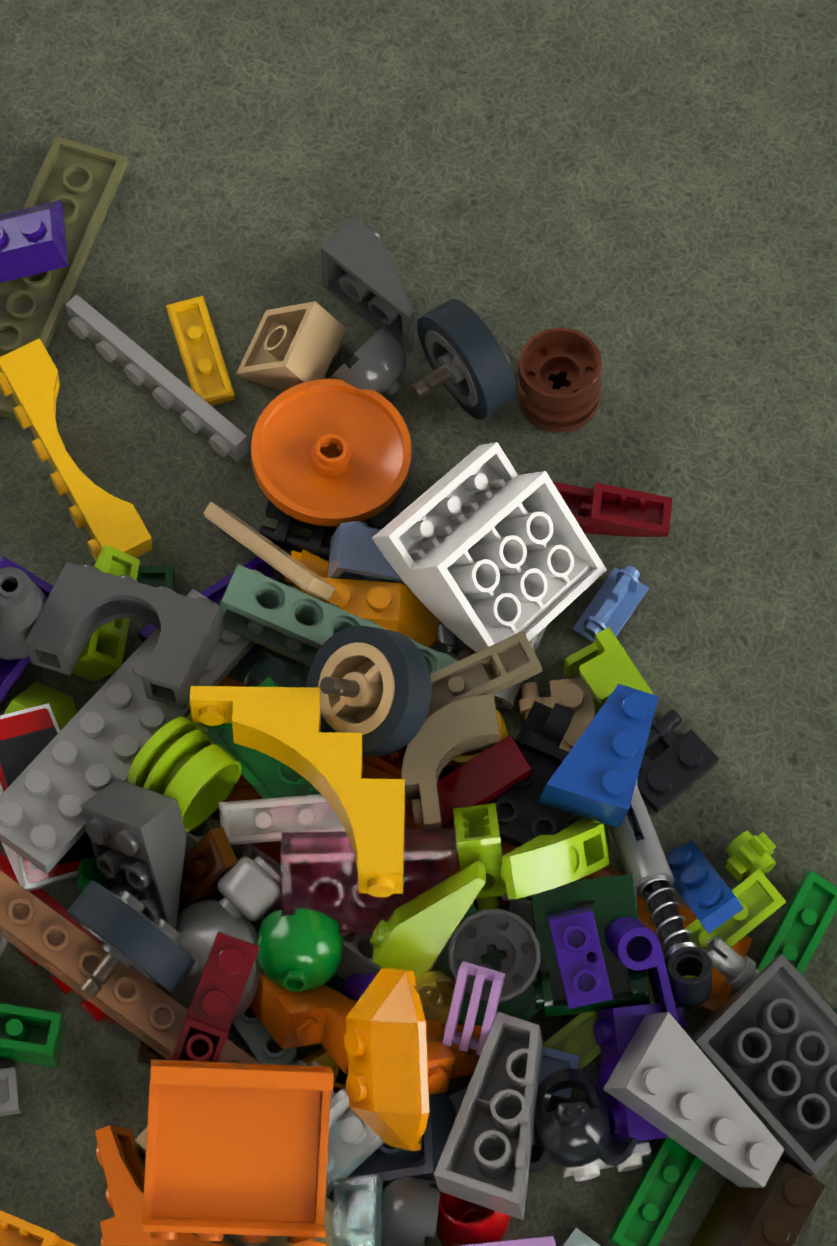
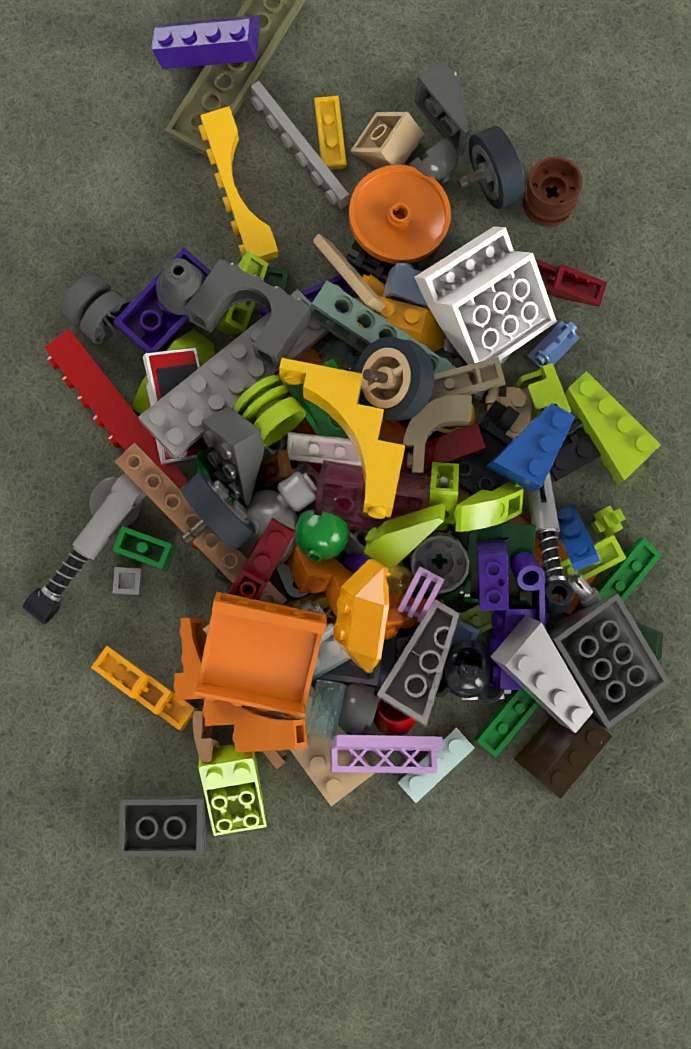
camera: 10 degrees right, 15 degrees up
(726, 714) = (616, 434): none -> lime wedge

